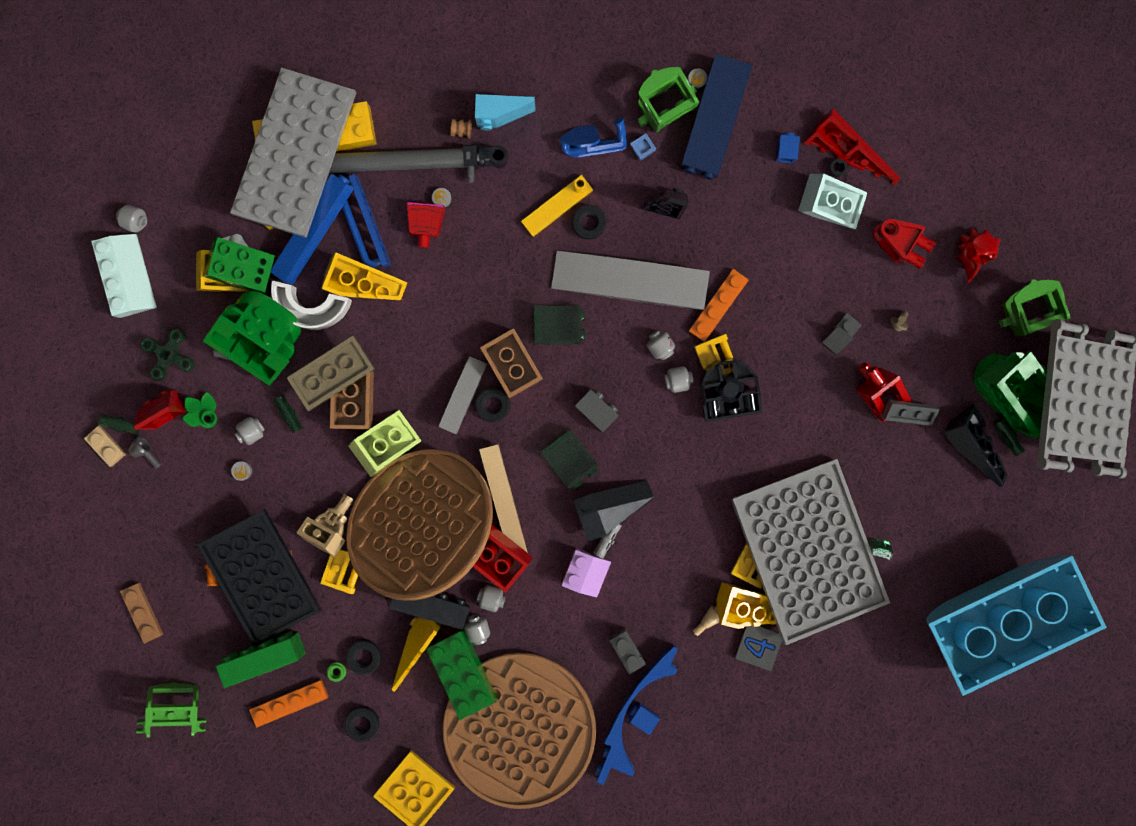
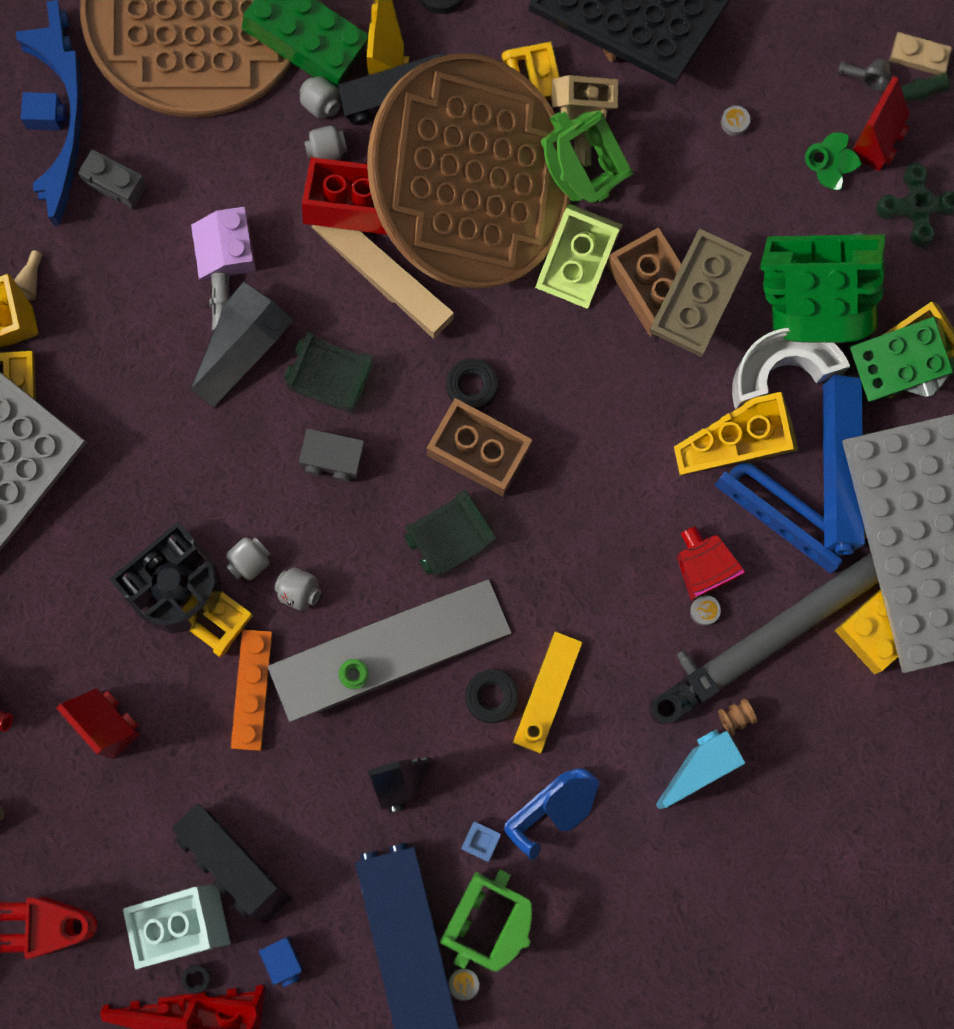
camera: 145 degrees right, 10 degrees down
(249, 430) = (757, 172): light grey head -> none
(288, 413) = (723, 221): clear green pin -> none
(362, 495) = (566, 166): none -> bright green animal
(462, 395) = (517, 371): light grey slope -> none
(661, 269) = (360, 667): none -> bright green plate
(786, 215) = (229, 865): none -> black wedge
(813, 333) = (100, 722): none -> red slope
(841, 334) = (60, 754): dark grey slope -> none

